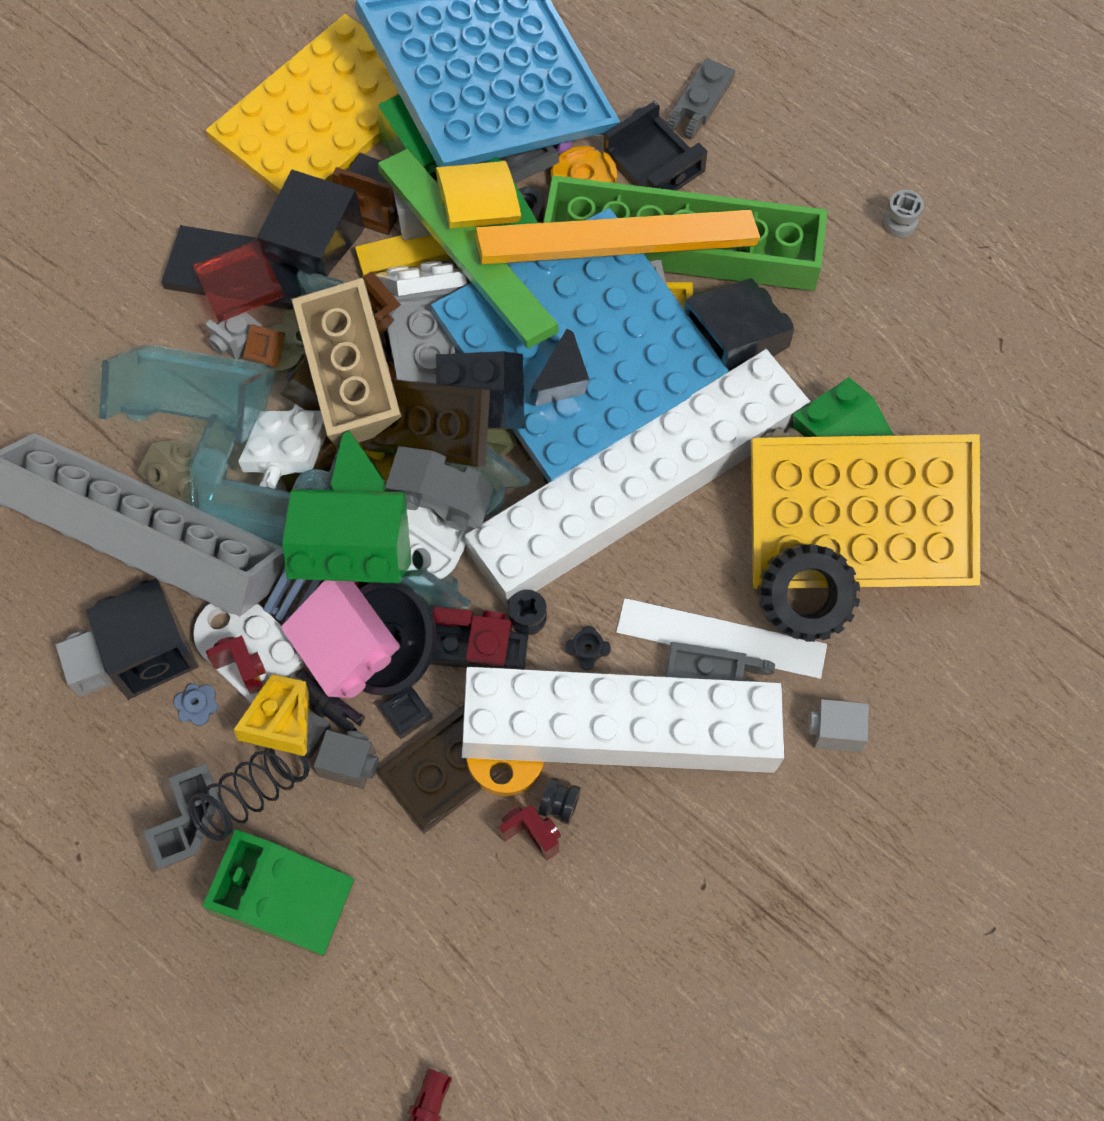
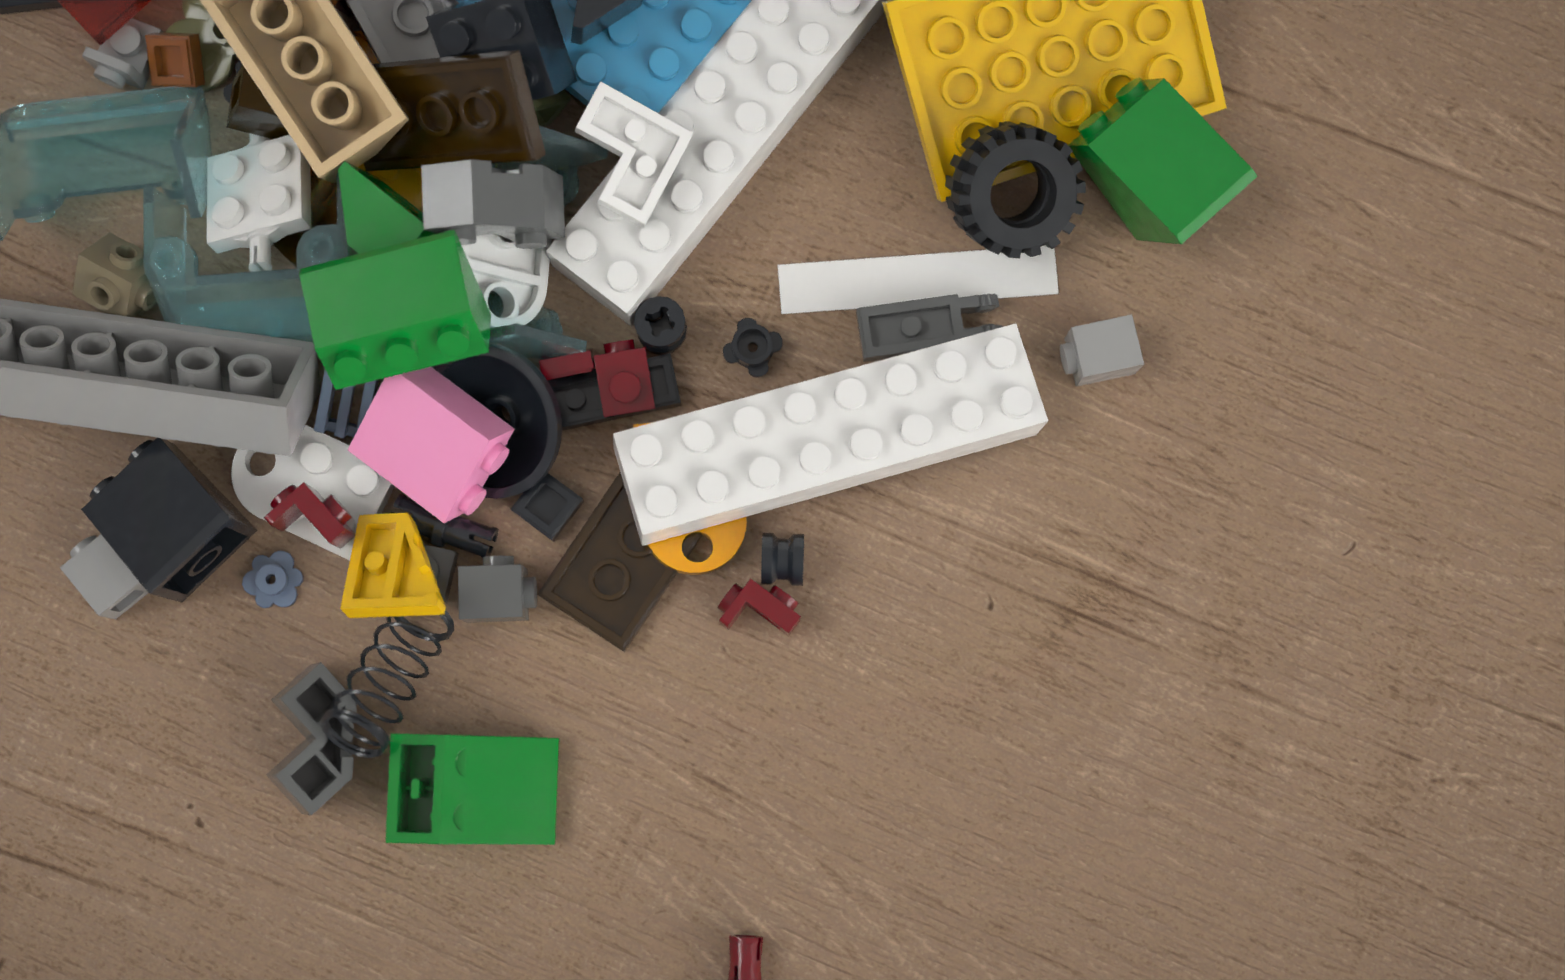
camera: 20 degrees left, 15 degrees up
(555, 480) = (647, 148): none -> white plate
(918, 603) = (1159, 162): none -> green slope

